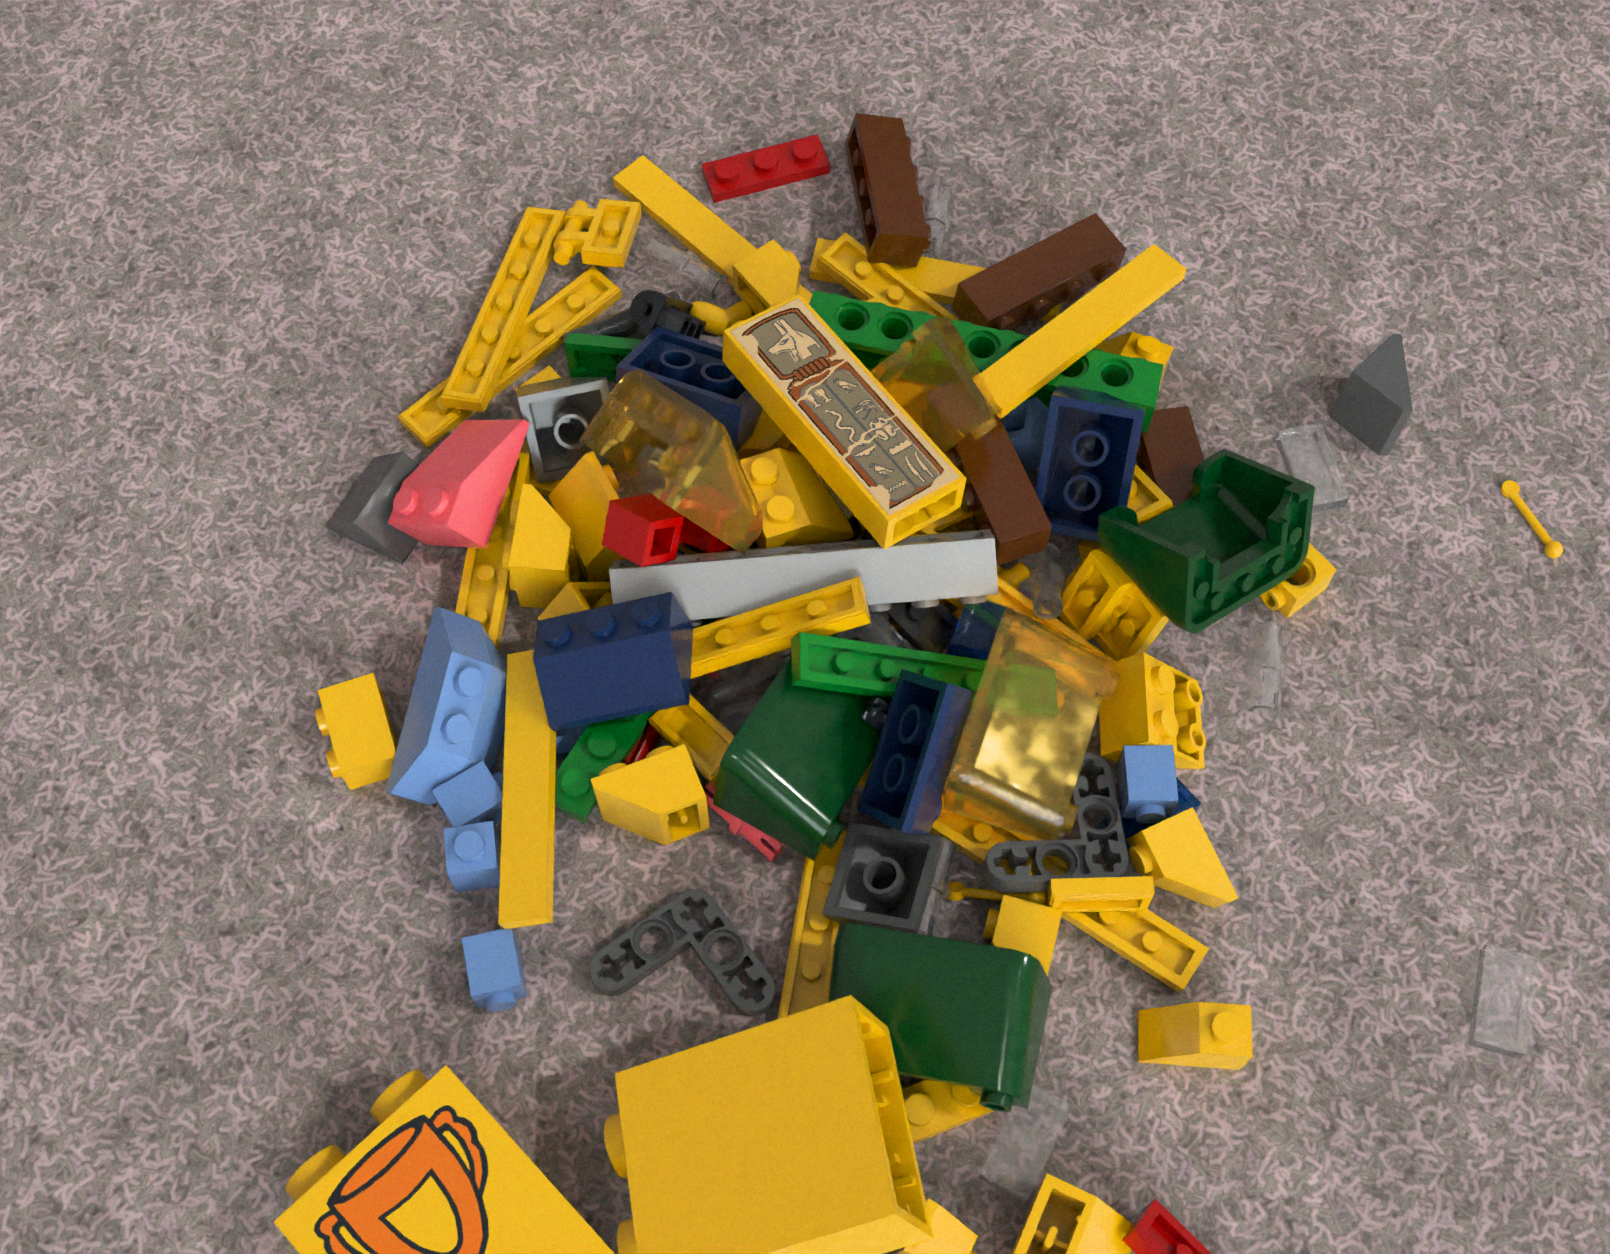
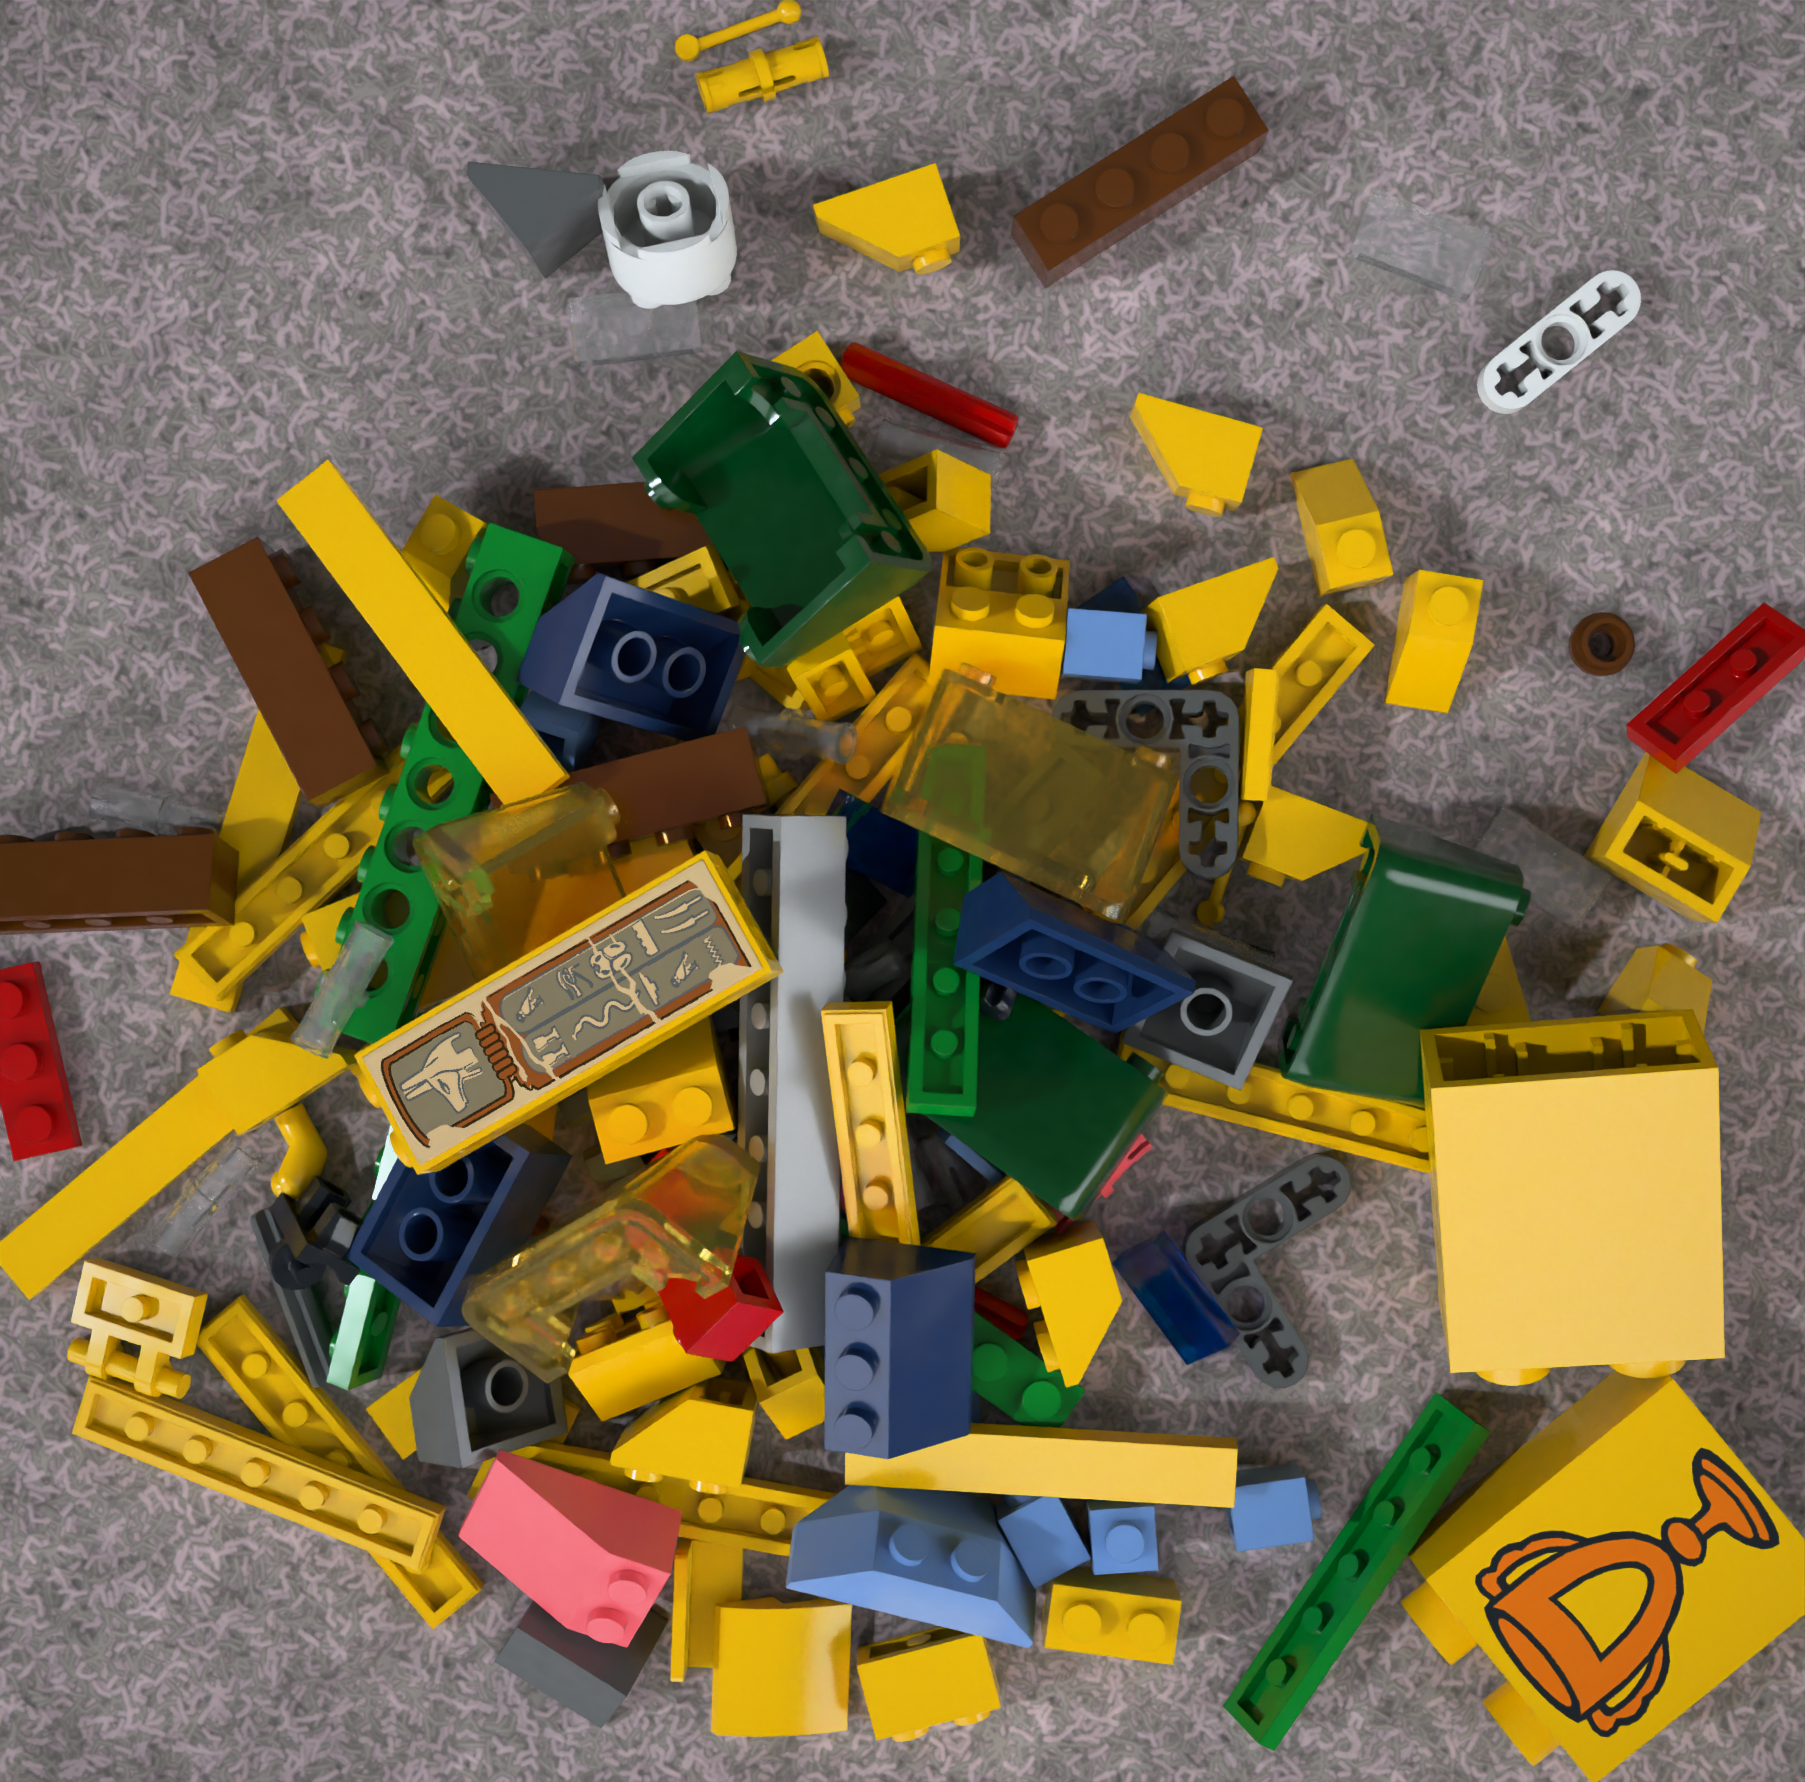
camera: 85 degrees left, 25 degrees up
(369, 632) = (781, 1667): none -> yellow slope
(410, 854) = (1112, 1615): none -> yellow brick
(413, 577) = (702, 1577): none -> yellow panel
(447, 1043) = (1355, 1571): none -> green plate
(655, 885) = (1176, 1298): none -> clear blue tile
(867, 307) = (342, 989): none -> clear pin
(1227, 1169) = (1621, 642): none -> reddish brown plate
(1229, 659) = (942, 499): none -> yellow slope
(1265, 957) = (1341, 528): none -> yellow slope
(1305, 660) = (929, 395): none -> red axle
(1305, 846) = (1198, 452): none -> yellow slope
(1383, 471) = (668, 229): none -> white brick
(1427, 623) = (895, 221): none -> yellow slope
(1476, 1158) = (1561, 316): none -> white beam
(1497, 783) = (1139, 182): none -> reddish brown brick
(1504, 532) = (762, 75): none -> yellow pin

